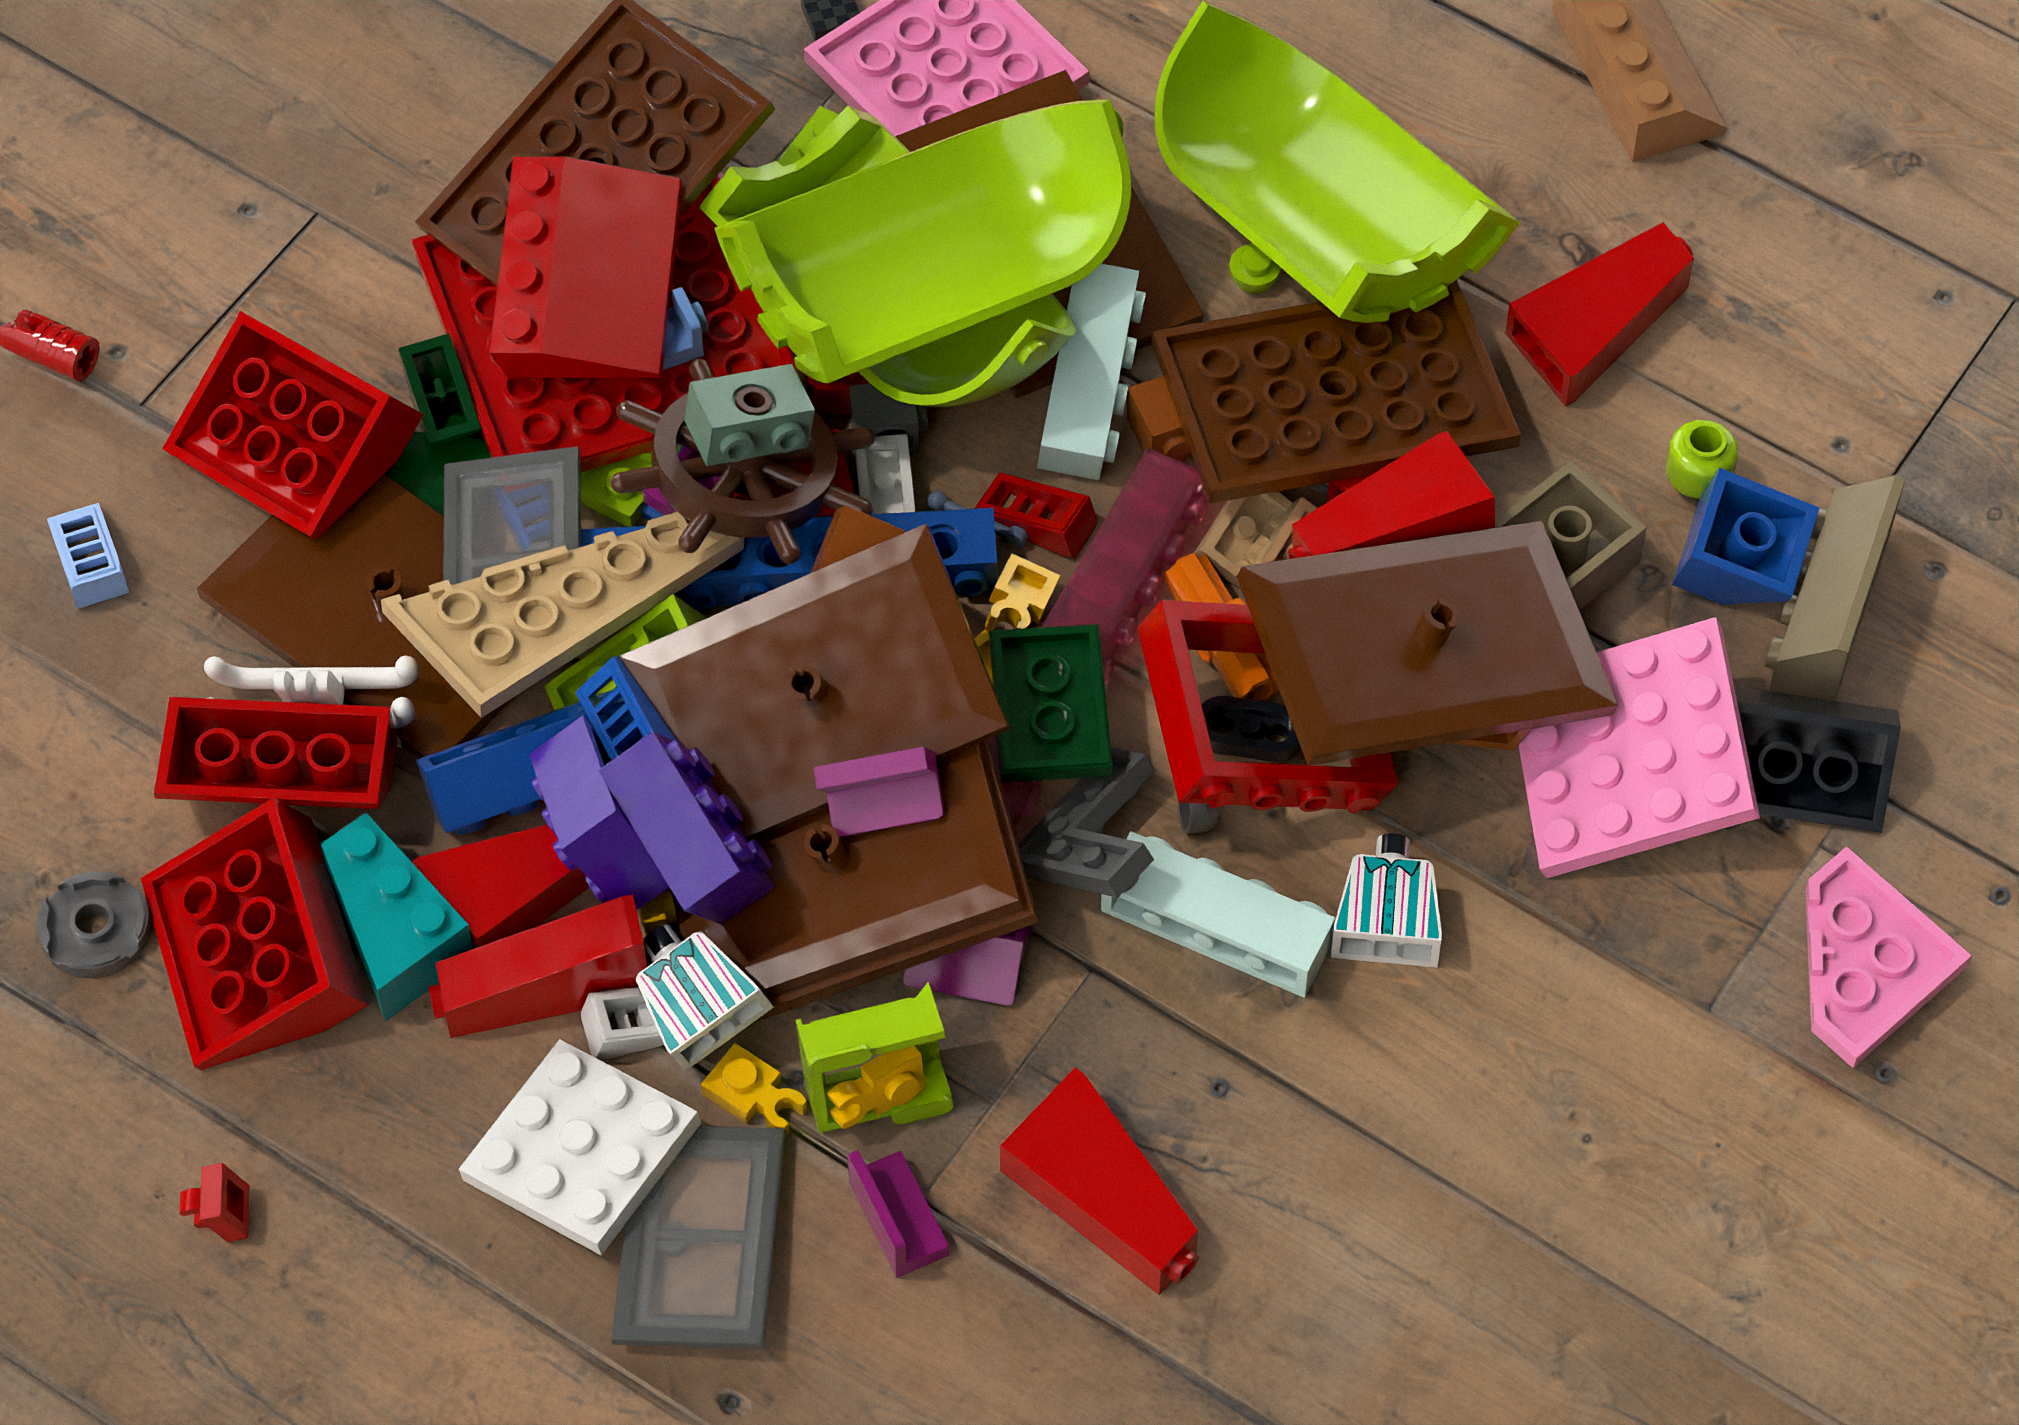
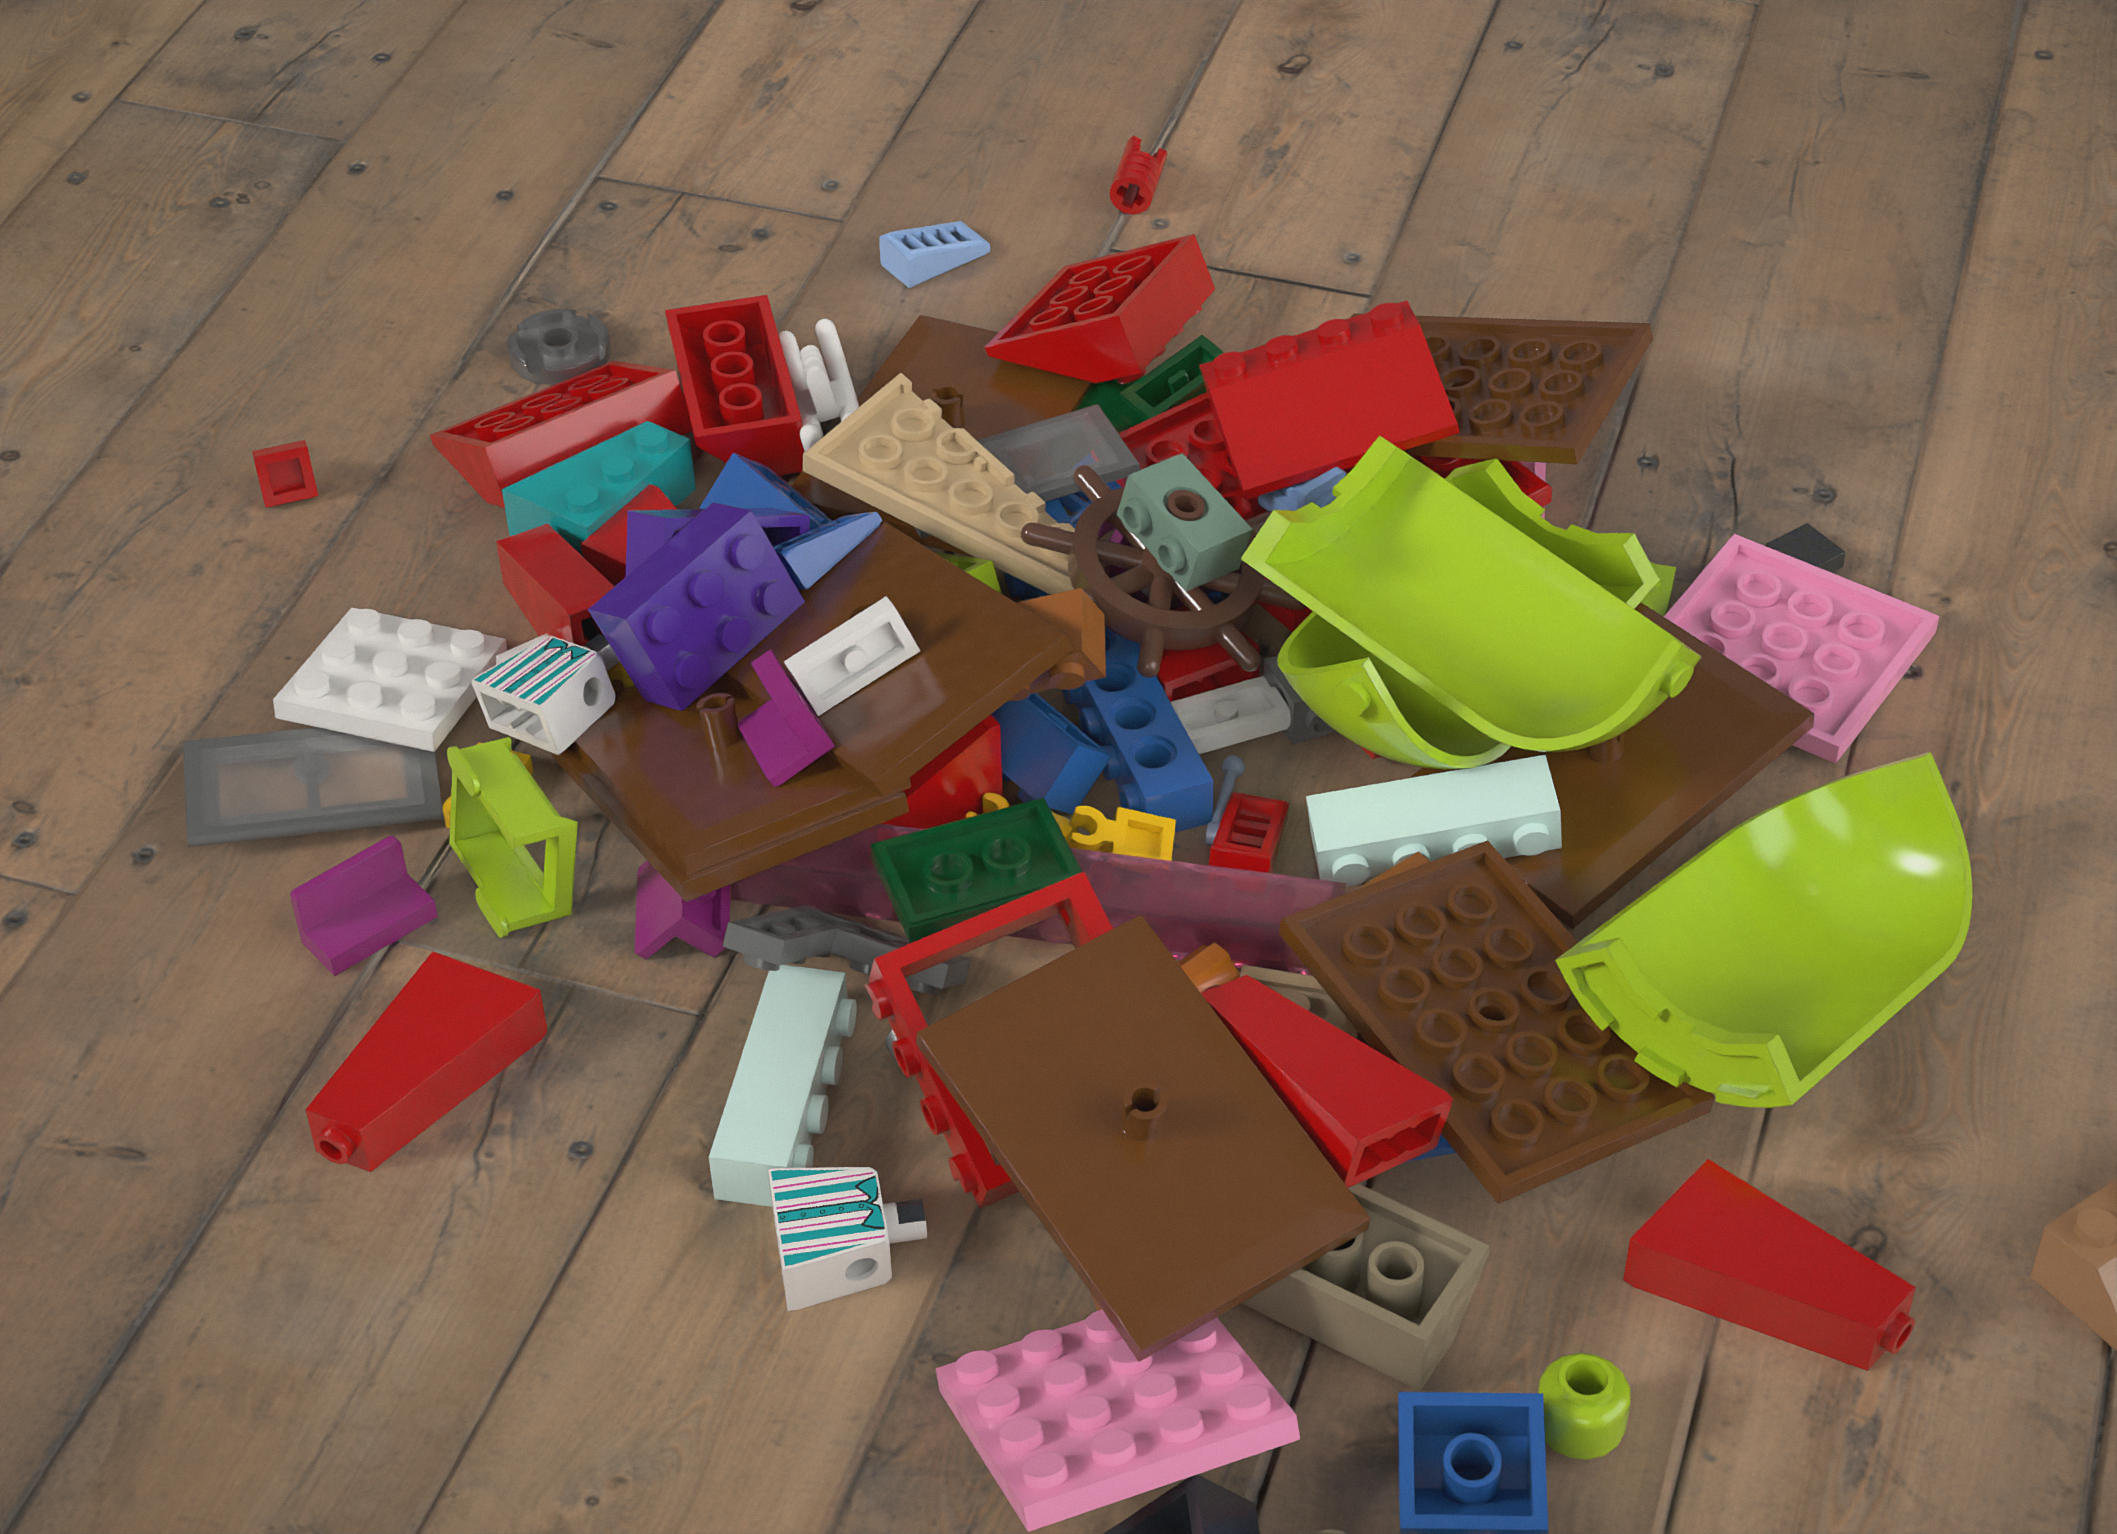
camera: 75 degrees right, 15 degrees down
(843, 683) = (852, 656): none -> white plate
(885, 1083) = (491, 855): yellow plate -> none

